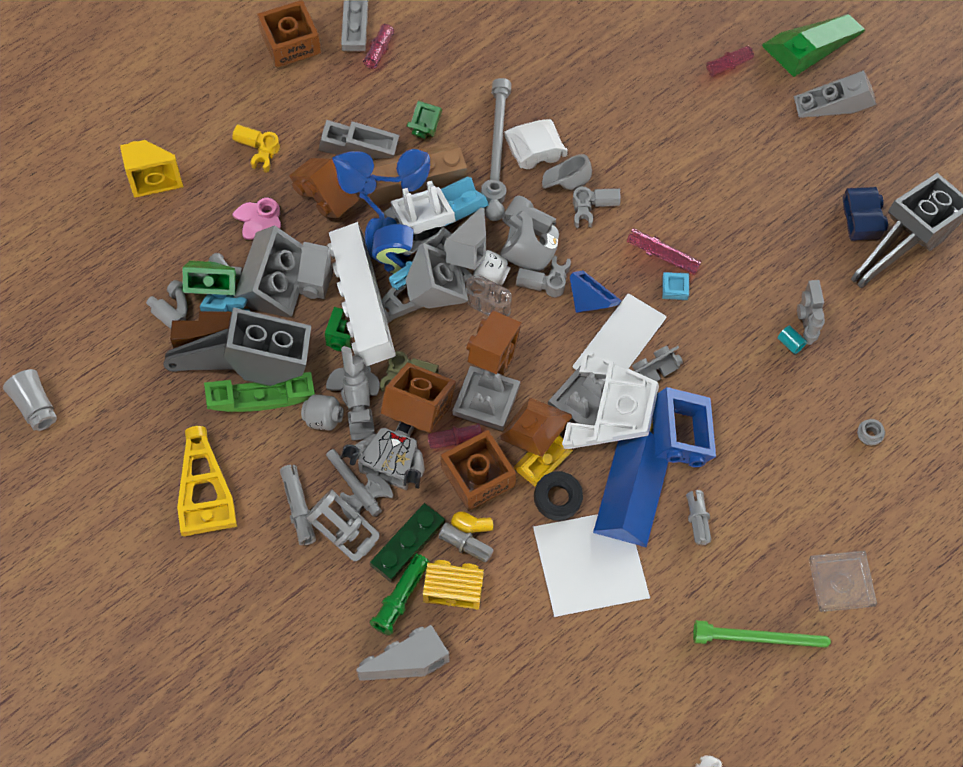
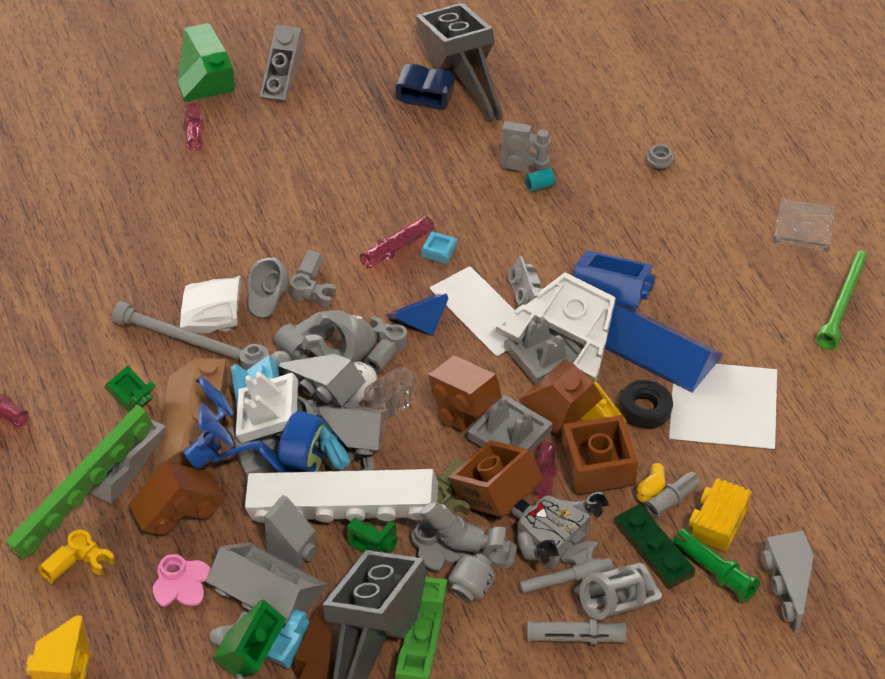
camera: 70 degrees left, 15 degrees down
(311, 117) = (79, 482): none -> bright green plate
(699, 518) = (708, 303): light grey axle -> none

